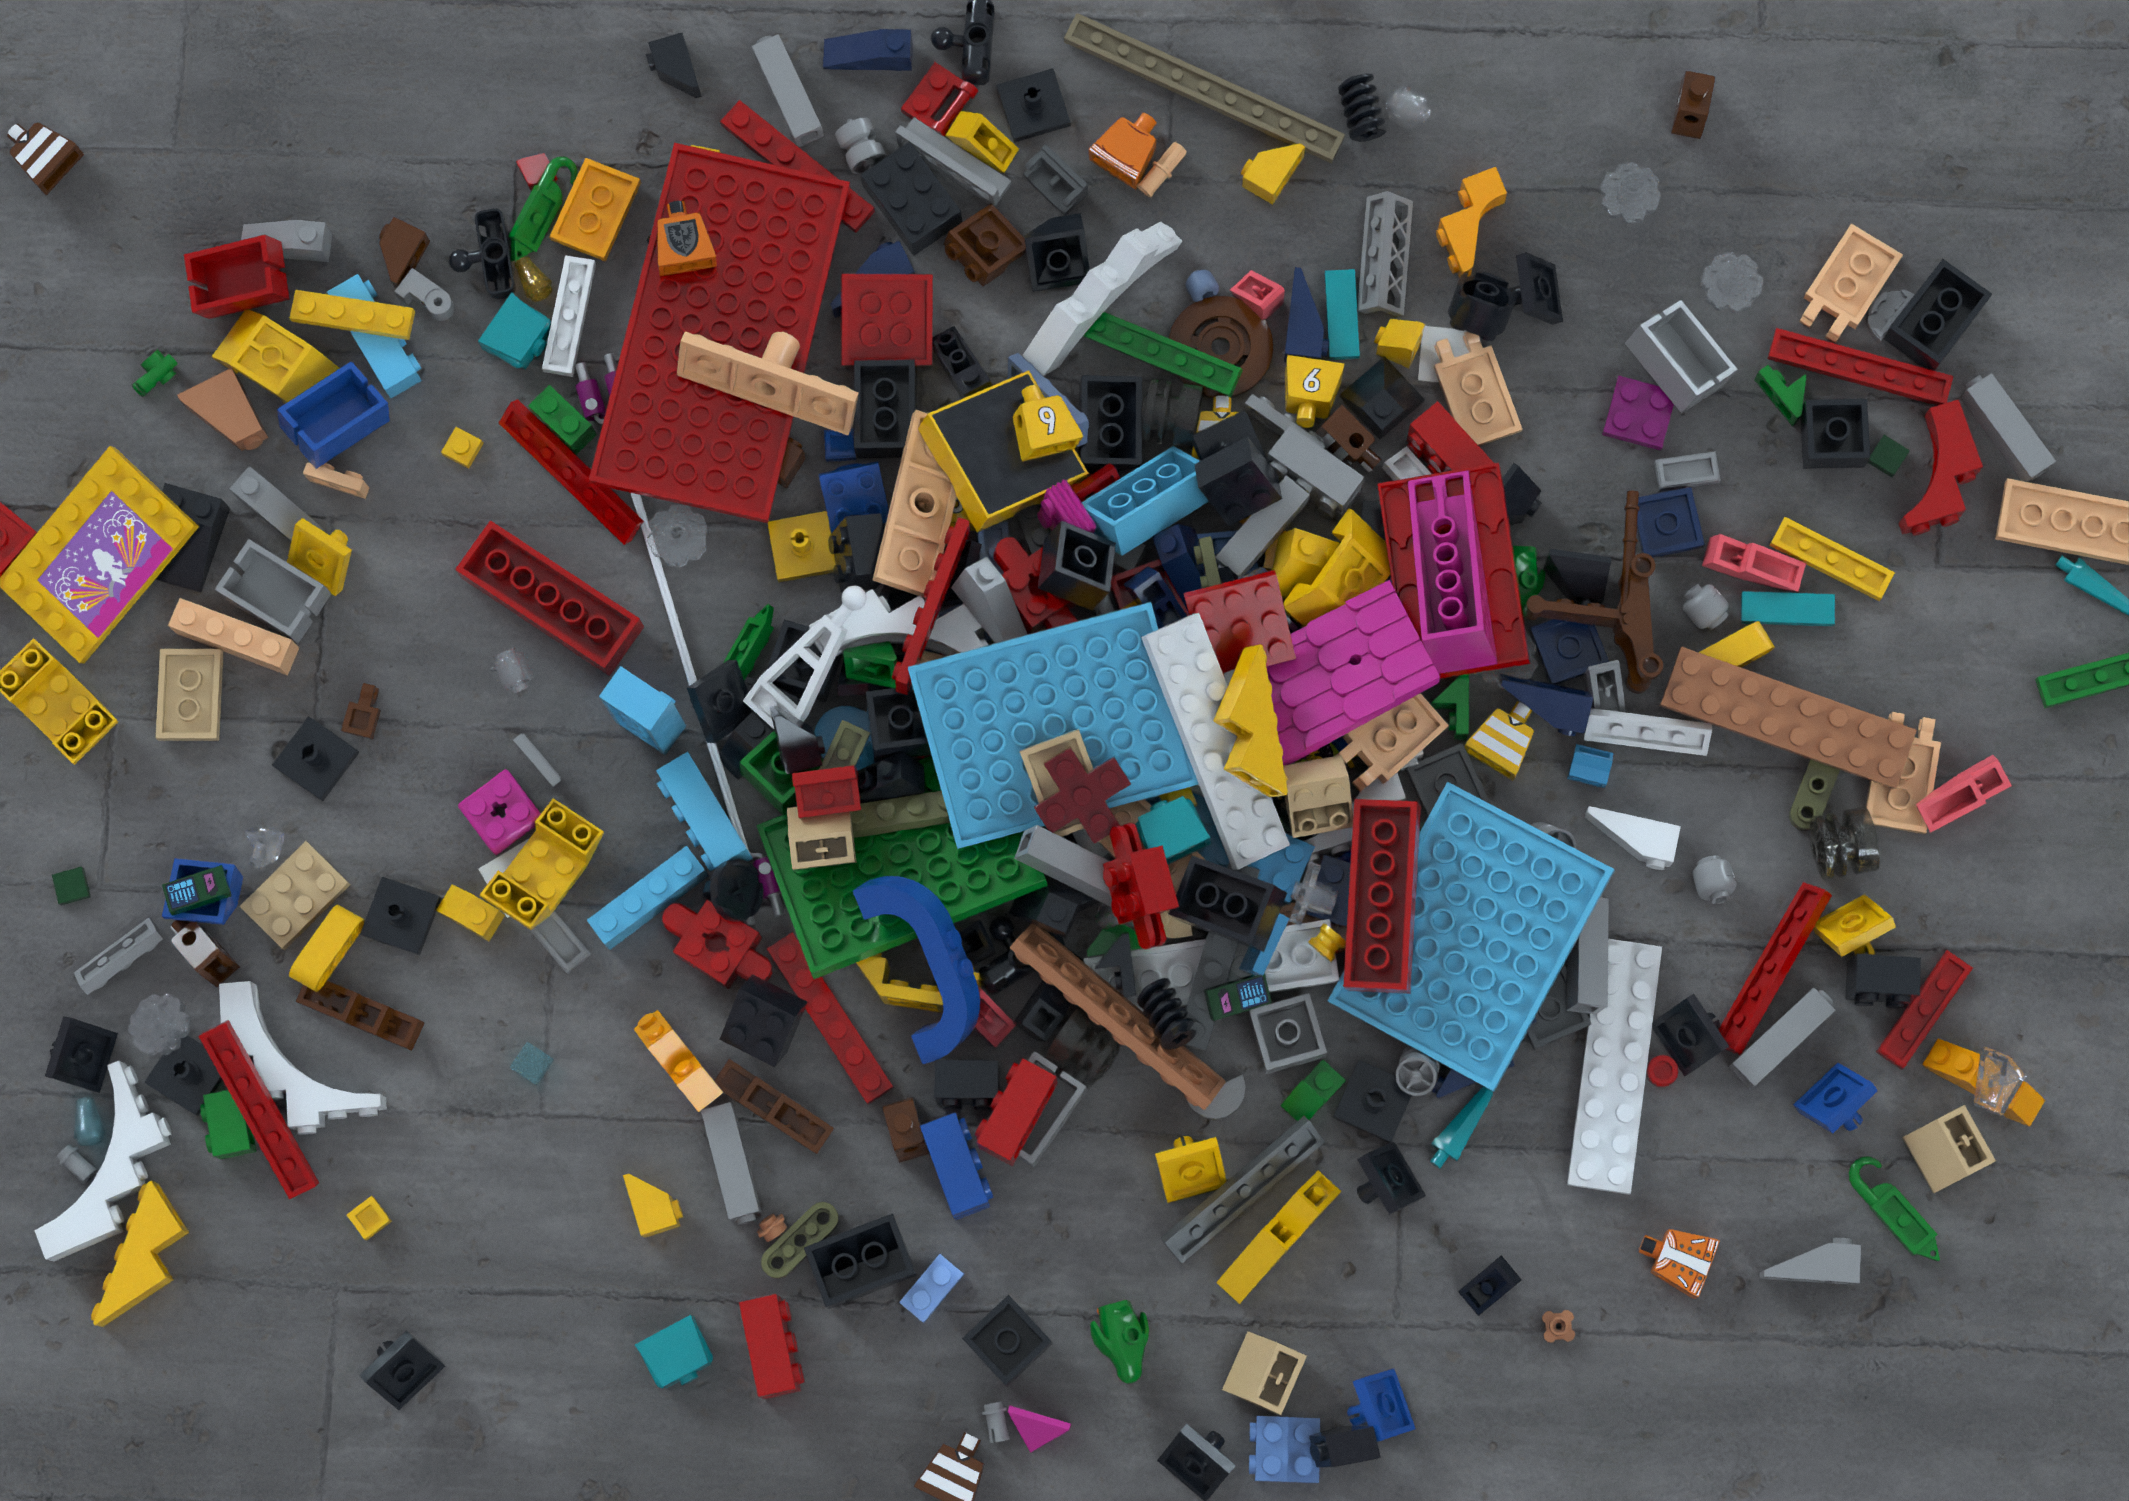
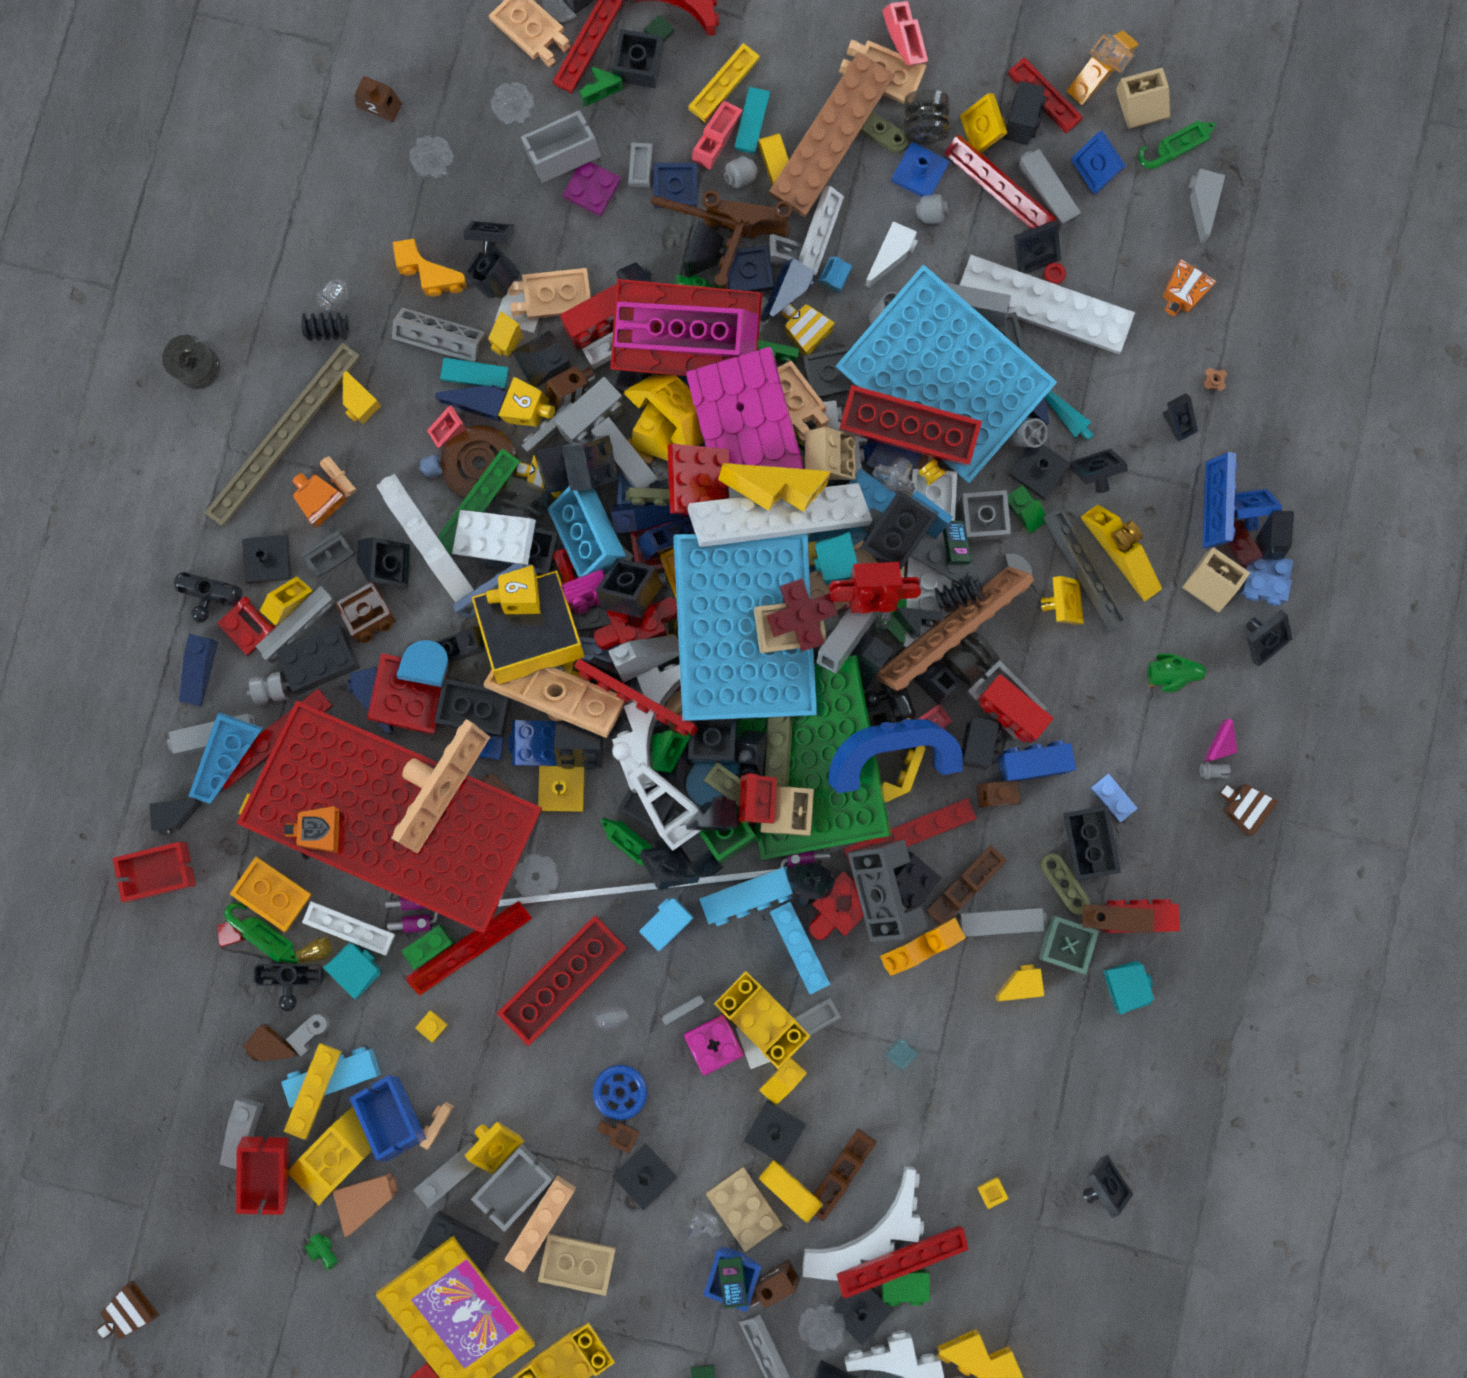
camera: 85 degrees left, 5 degrees up
(404, 683) = (639, 1096): none -> blue plate
(596, 59) = (154, 872): none -> red piece
(716, 1257) = (1068, 945): none -> sand green brick
(742, 973) = (874, 871): none -> dark grey plate
(758, 1306) = (1117, 918): none -> reddish brown piece
(766, 107) = (223, 752): none -> dark azure wing
(771, 1227) = (1052, 902): nougat plate -> none
(929, 330) = (424, 663): none -> dark azure tile
(1007, 1340) = (1163, 751): black brick -> none
(1113, 380) = (494, 537): none -> white plate
(1295, 1228) = (1127, 535): none -> pearl gold wheel
(1324, 1401) = (1243, 546): none -> clear red plate
(1386, 1355) = (1219, 500): none -> blue plate
(1769, 854) = (920, 170): none -> blue tile

